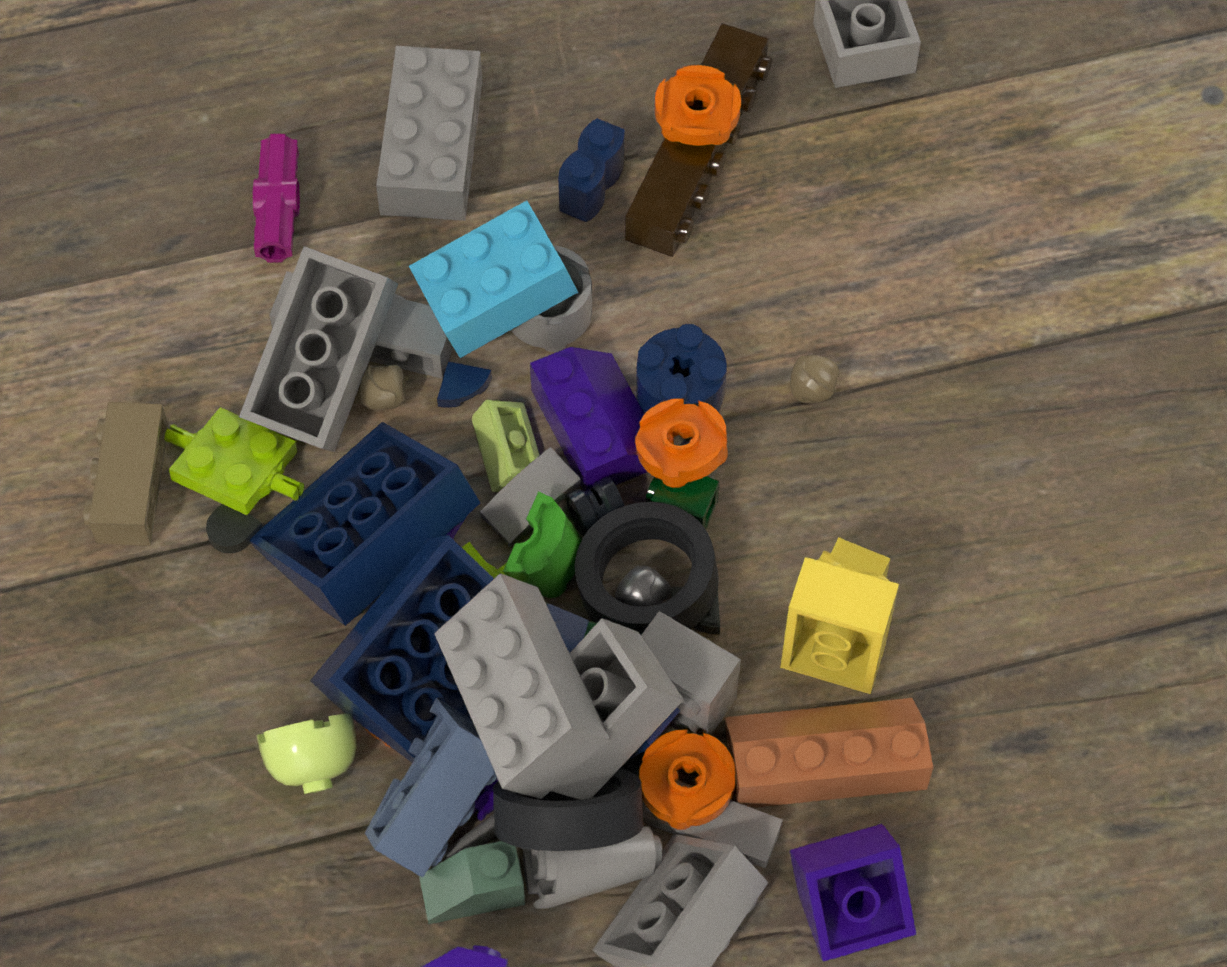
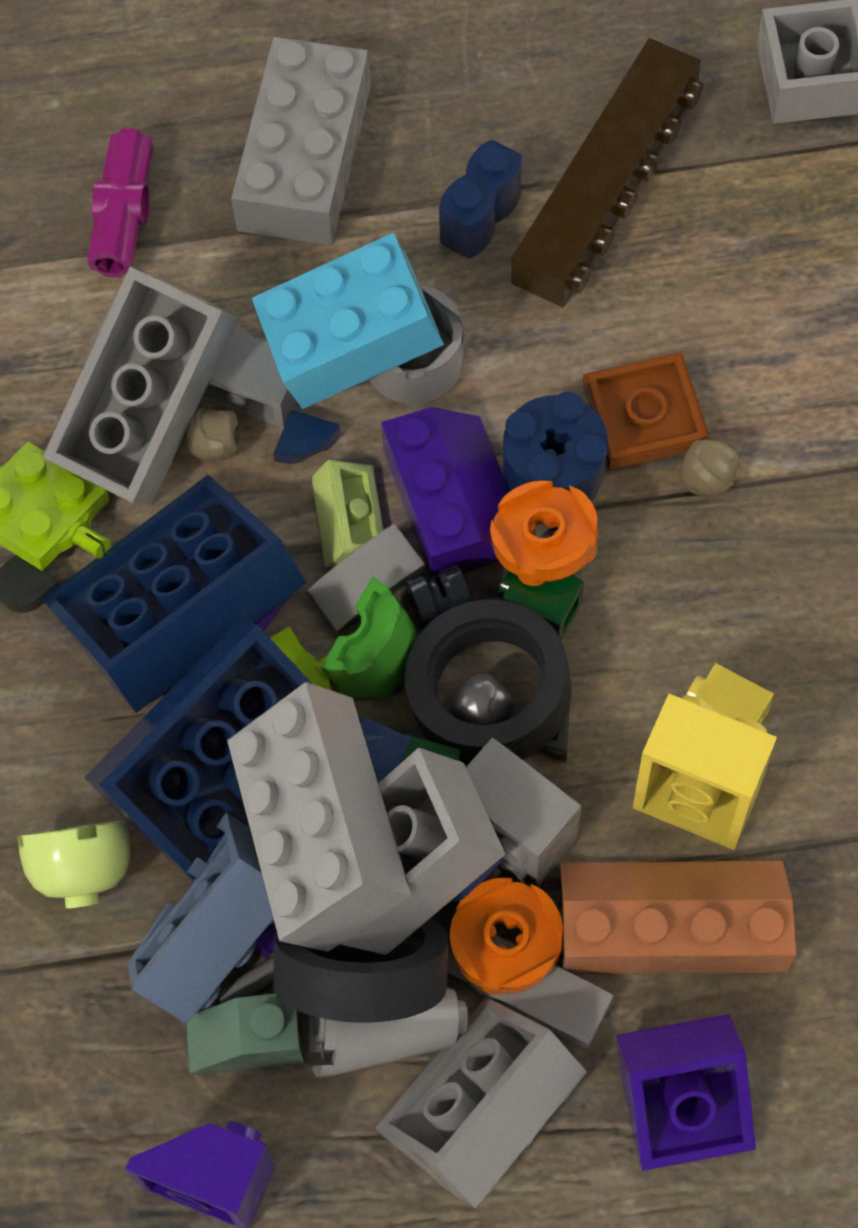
camera: 10 degrees right, 5 degrees up
(694, 126) = (603, 158): orange plate -> none
(755, 335) = (646, 409): none -> dark orange plate

